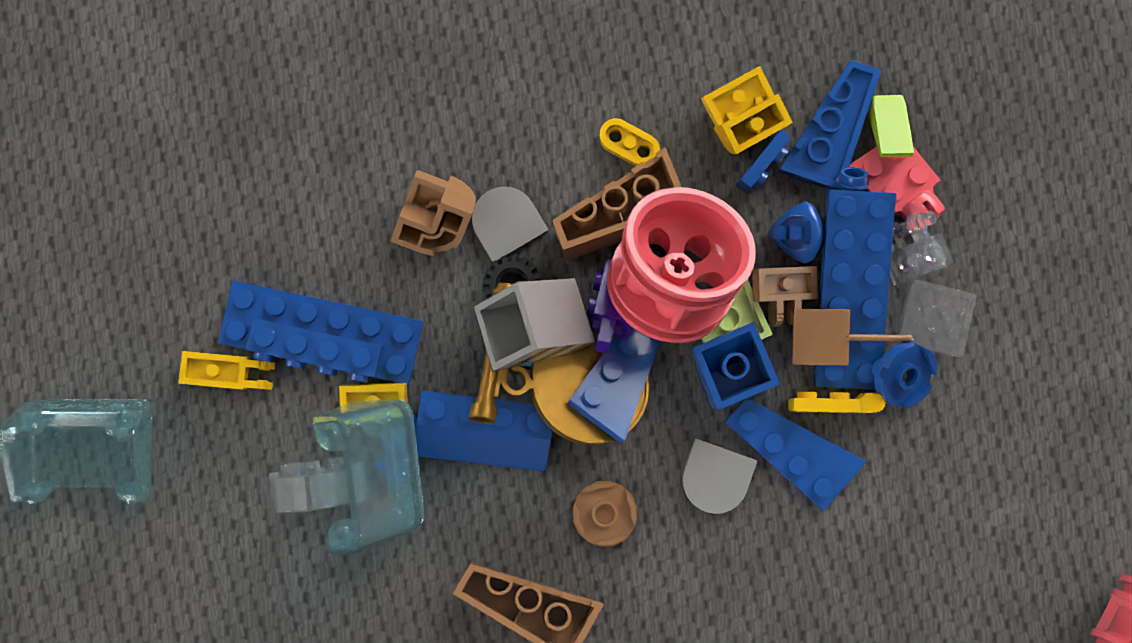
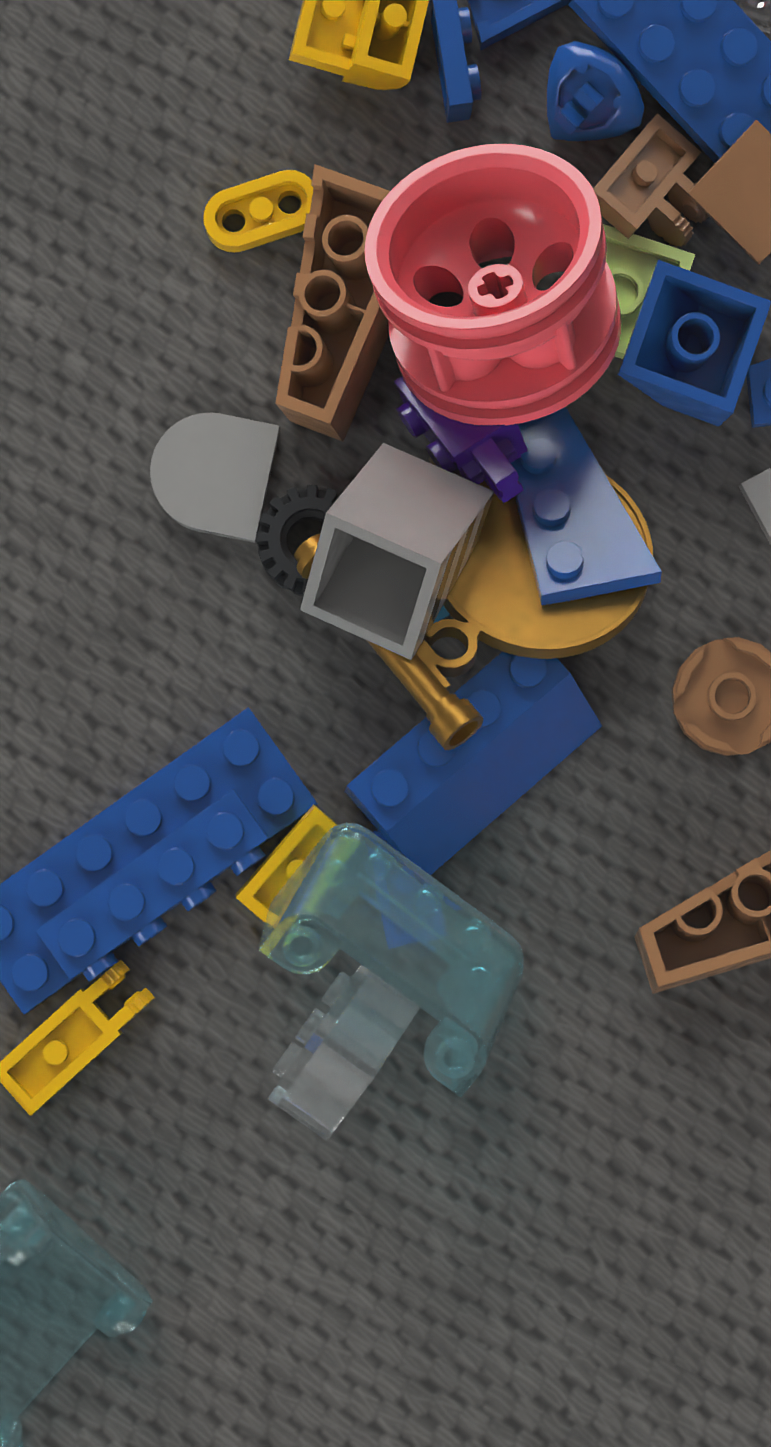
camera: 45 degrees left, 0 degrees up
(434, 214) = (120, 556): medium nougat brick -> none

